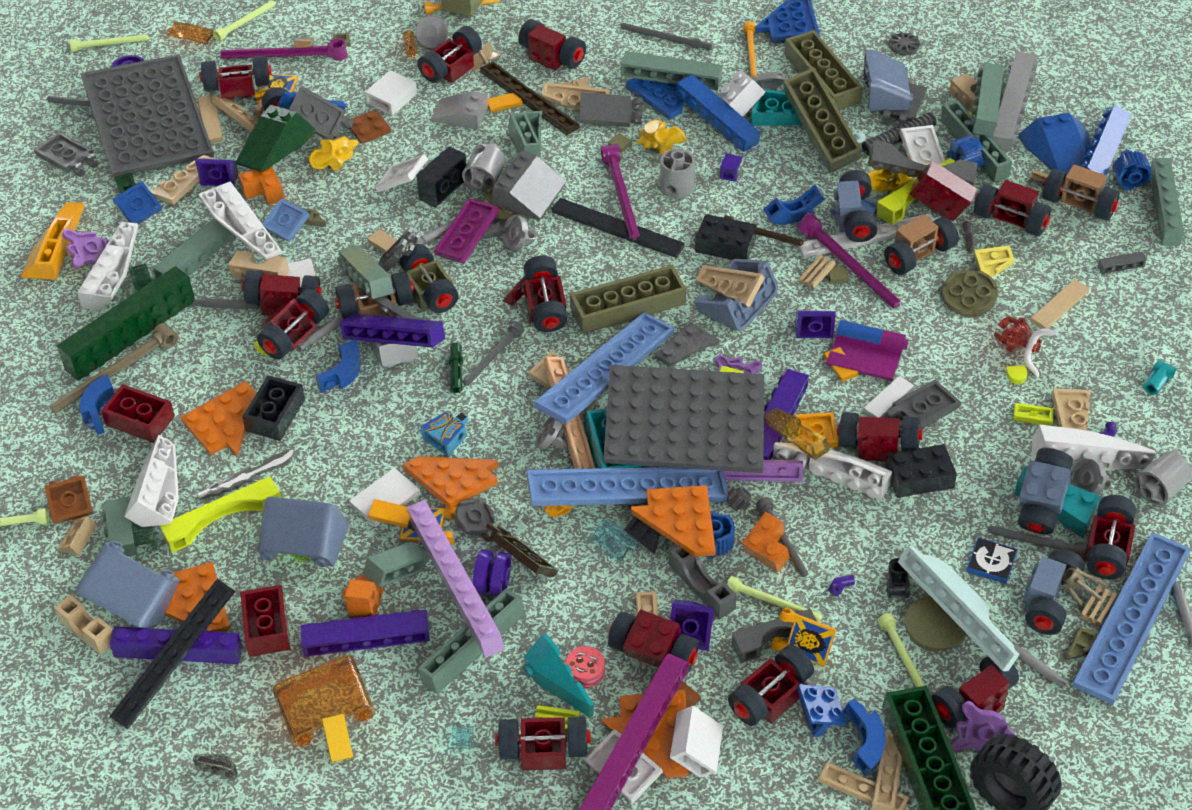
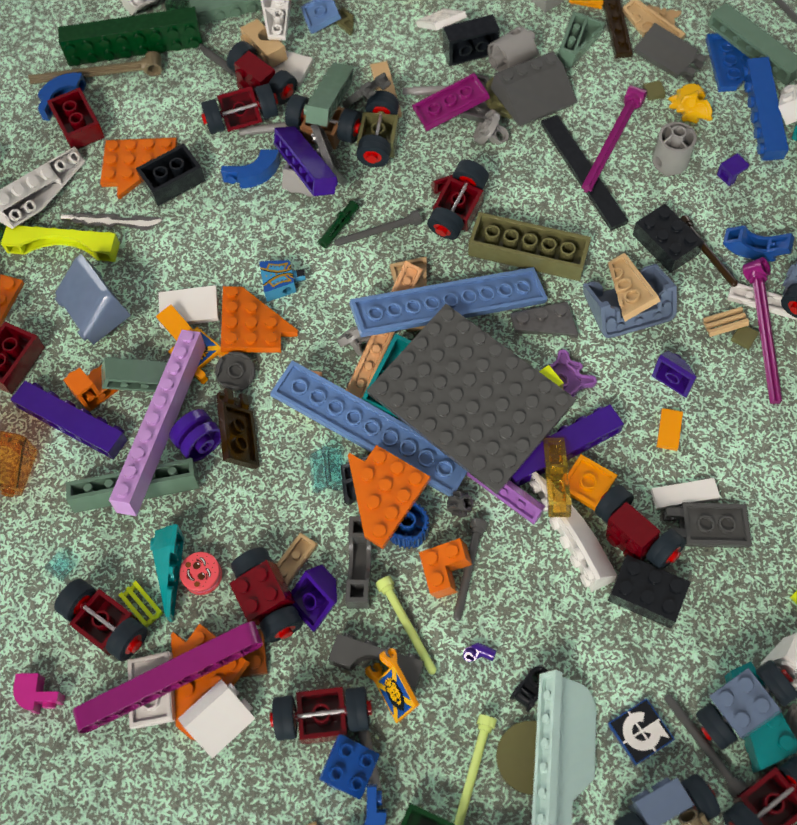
camera: 40 degrees right, 15 degrees up
(867, 350) = (707, 432): magenta door -> none

